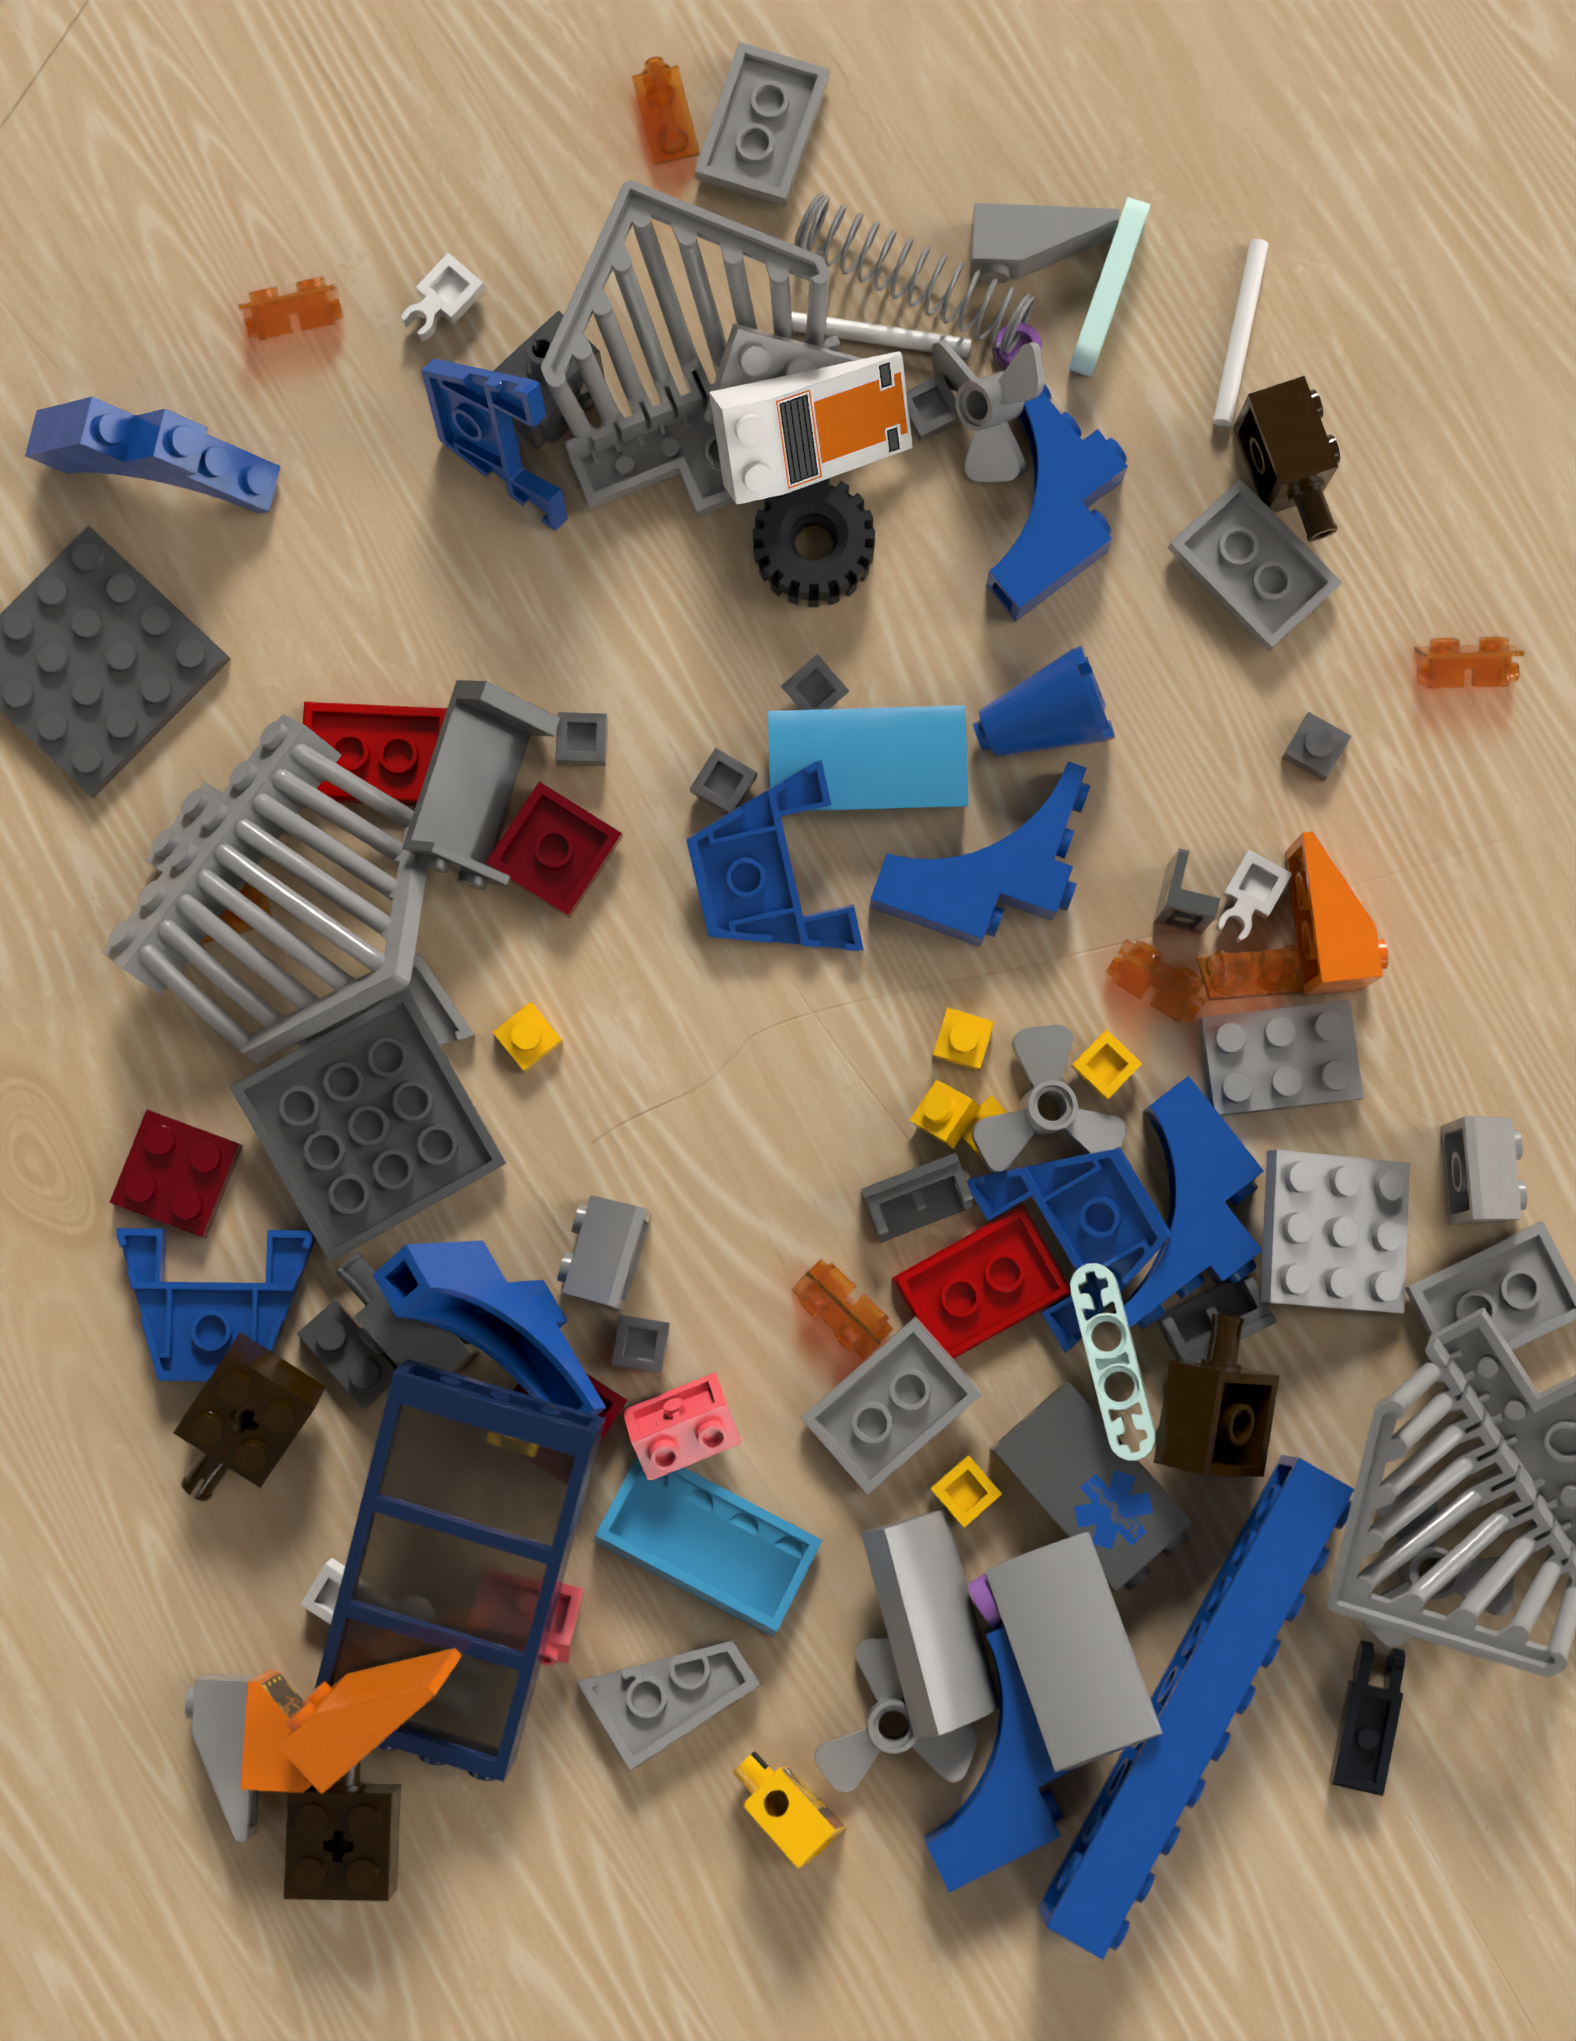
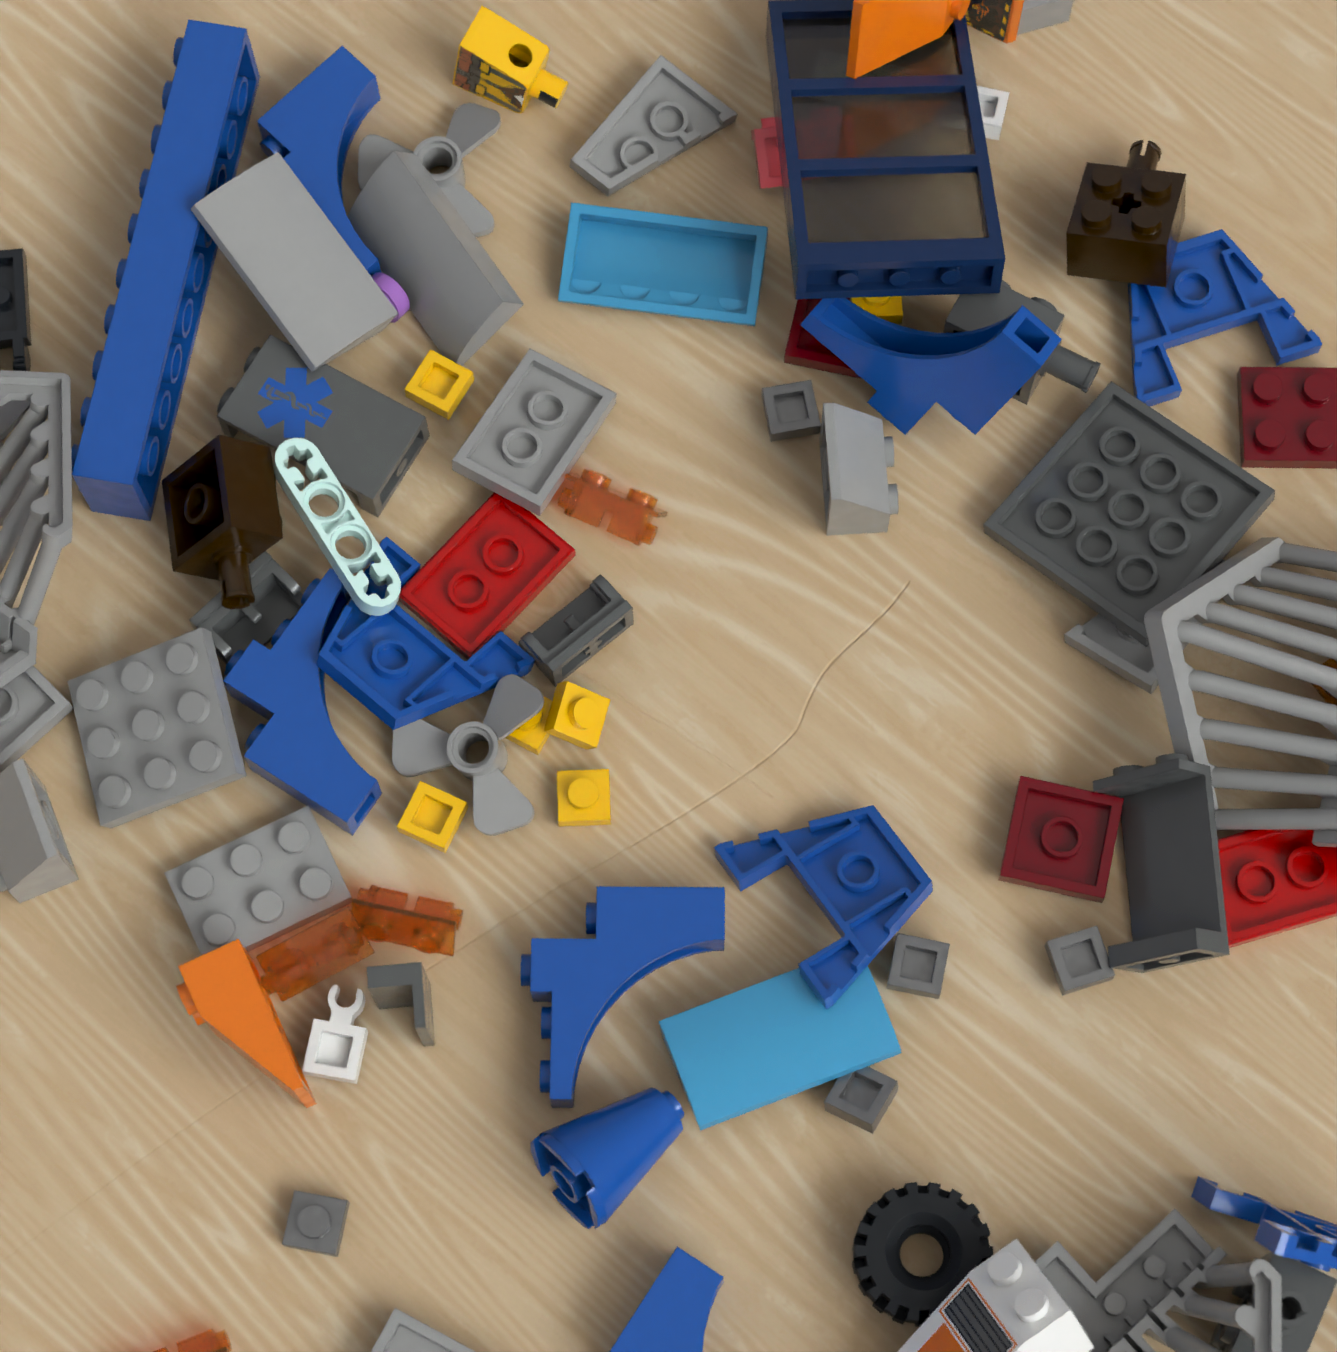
camera: 160 degrees right, 10 degrees down
(338, 1346) = (1083, 321): dark grey plate -> none
(528, 1037) = (1012, 654): yellow plate -> none
(681, 1427) = (726, 350): coral bracket -> none

